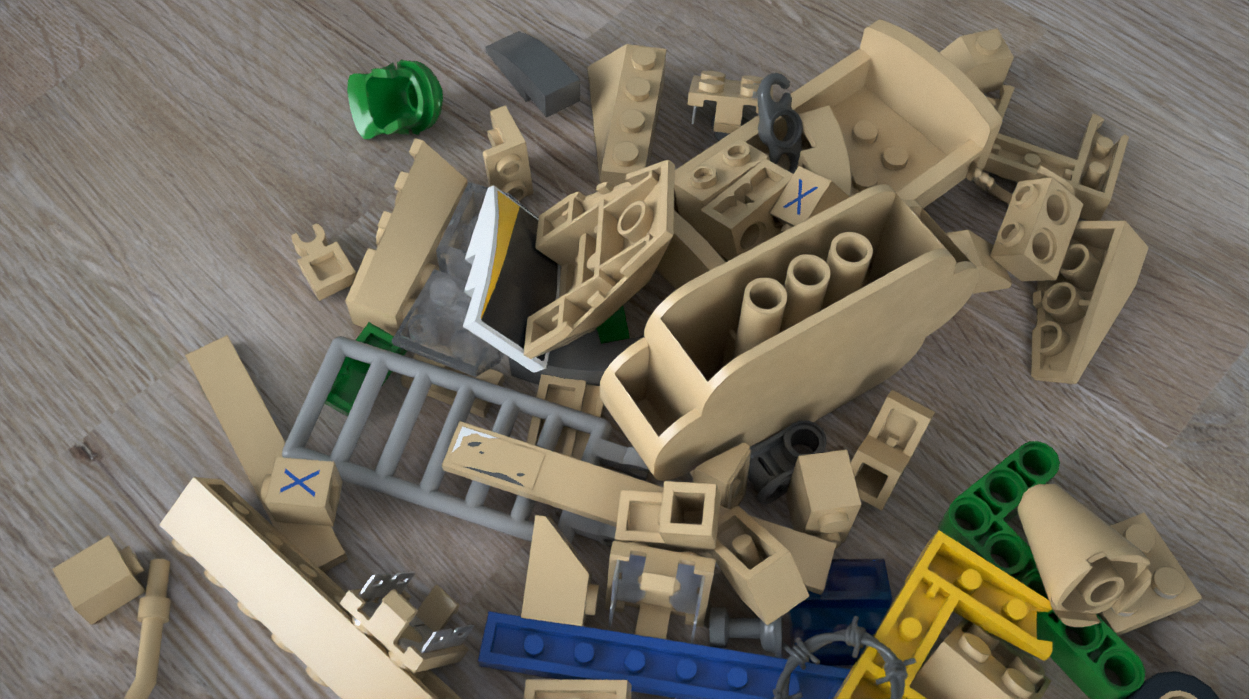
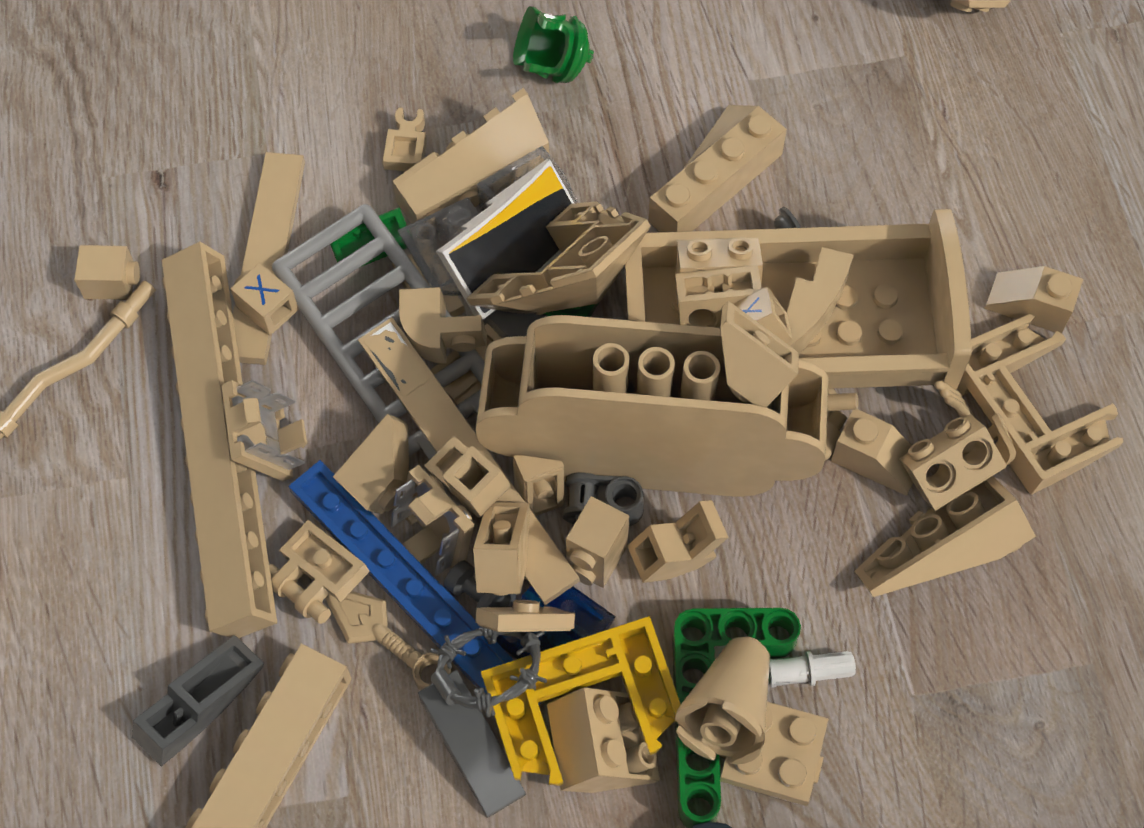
camera: 40 degrees right, 5 degrees up
(494, 405) = (430, 331): none -> tan brick
(508, 158) = (589, 150): tan bracket -> none
(536, 72) = (679, 85): dark grey slope -> none
(729, 95) = (801, 194): tan piece -> none
(769, 112) = (798, 230): dark grey piece -> none
(831, 617) = (524, 617): none -> tan plate
(894, 212) = (754, 358): none -> tan slope
(1088, 473) = (811, 668): none -> white axle

